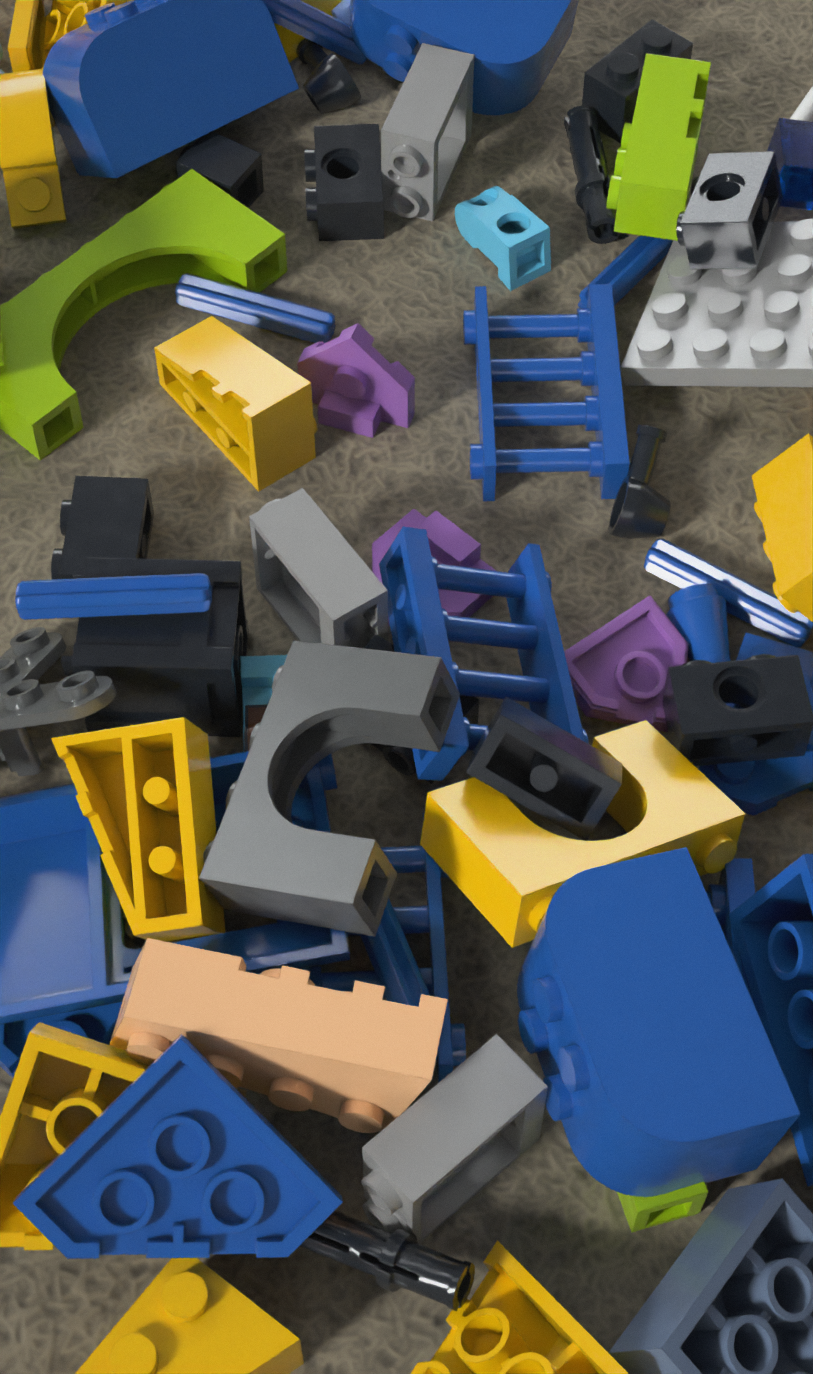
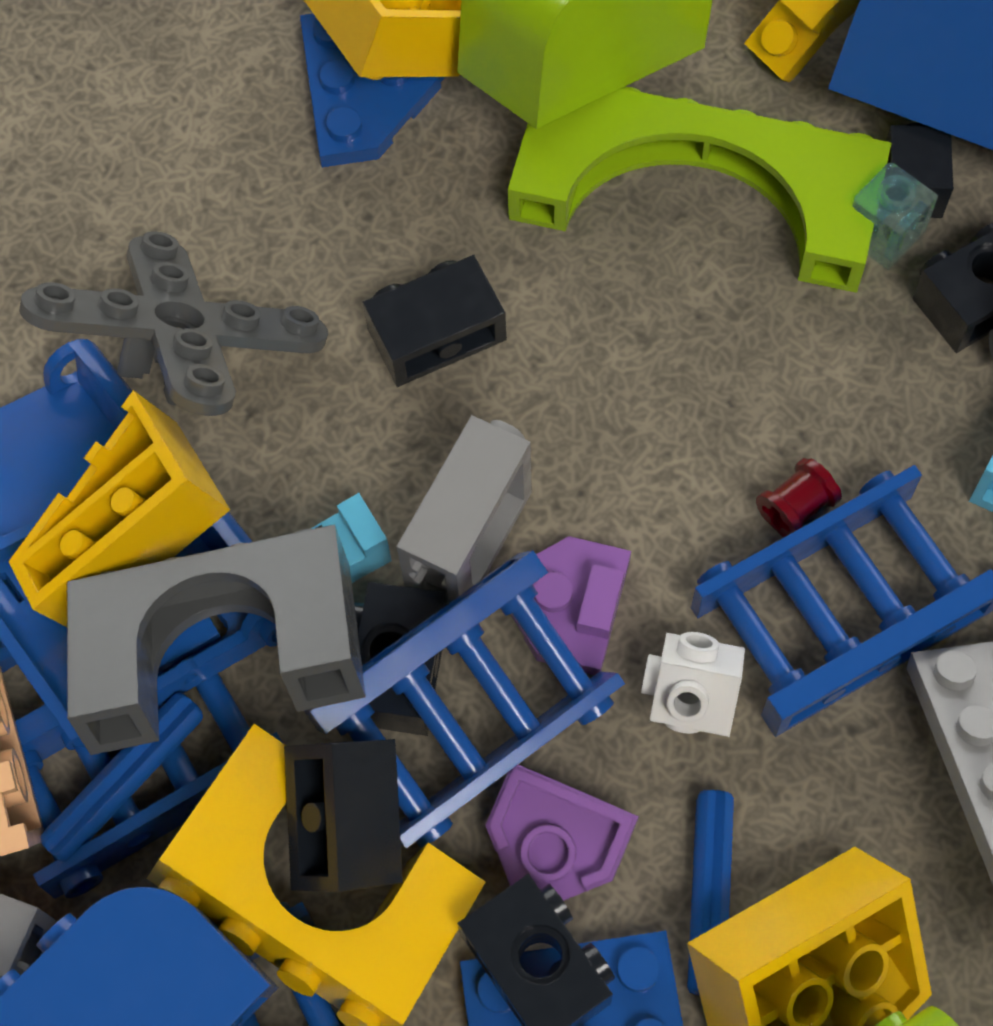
camera: 65 degrees right, 10 degrees up
(113, 596) = (314, 357): blue axle -> none
(168, 661) = (332, 420): black container -> none
(240, 400) = (653, 336): yellow wedge -> none
(249, 190) = (899, 211): none -> clear light blue bracket
(255, 309) = (784, 292): axle -> none
(357, 384) = (728, 426): medium lavender plate -> none
(446, 389) = (799, 497): none -> dark red bush
(561, 510) = (694, 683): none -> white brick
(638, 507) = (756, 757): black bar -> none
(702, 622) = (642, 887): blue cone -> none

